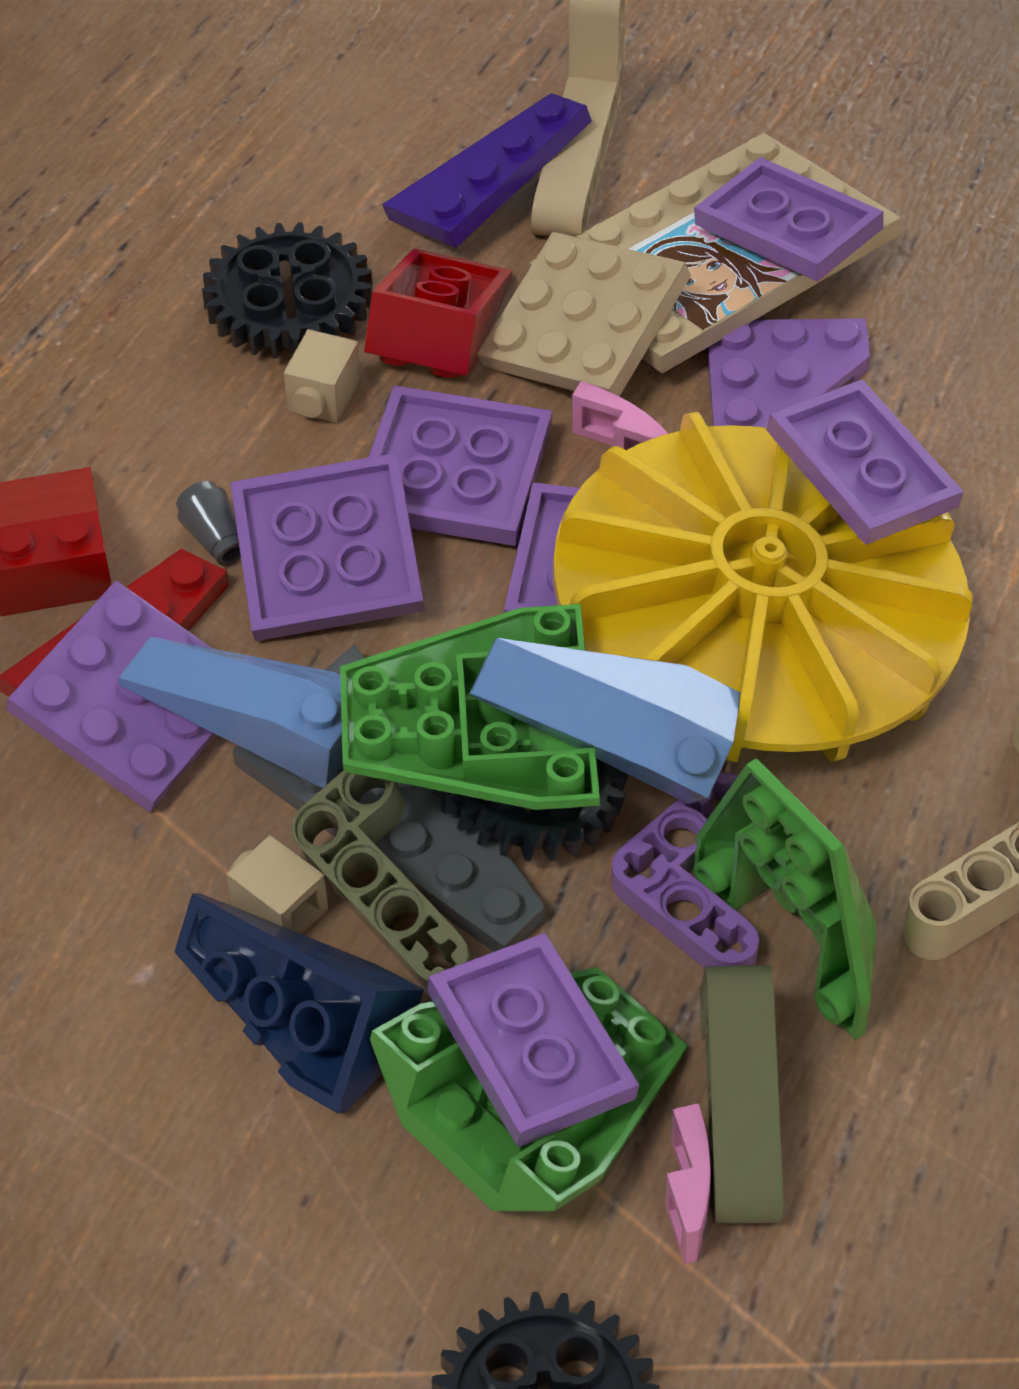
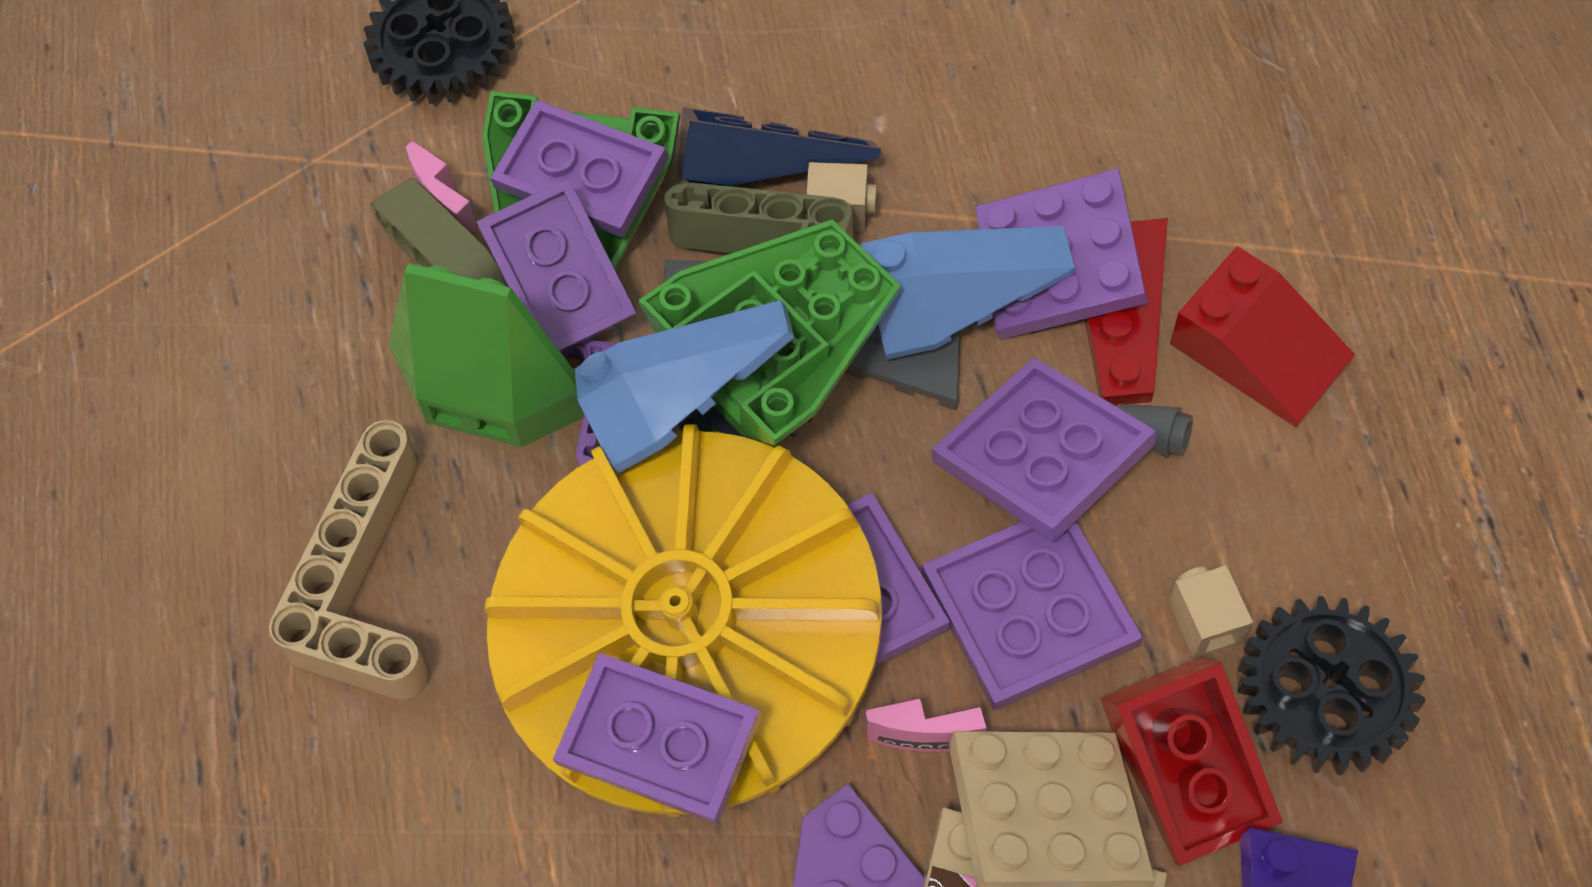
camera: 145 degrees right, 10 degrees up
(642, 942) = (557, 265): none -> medium lavender plate

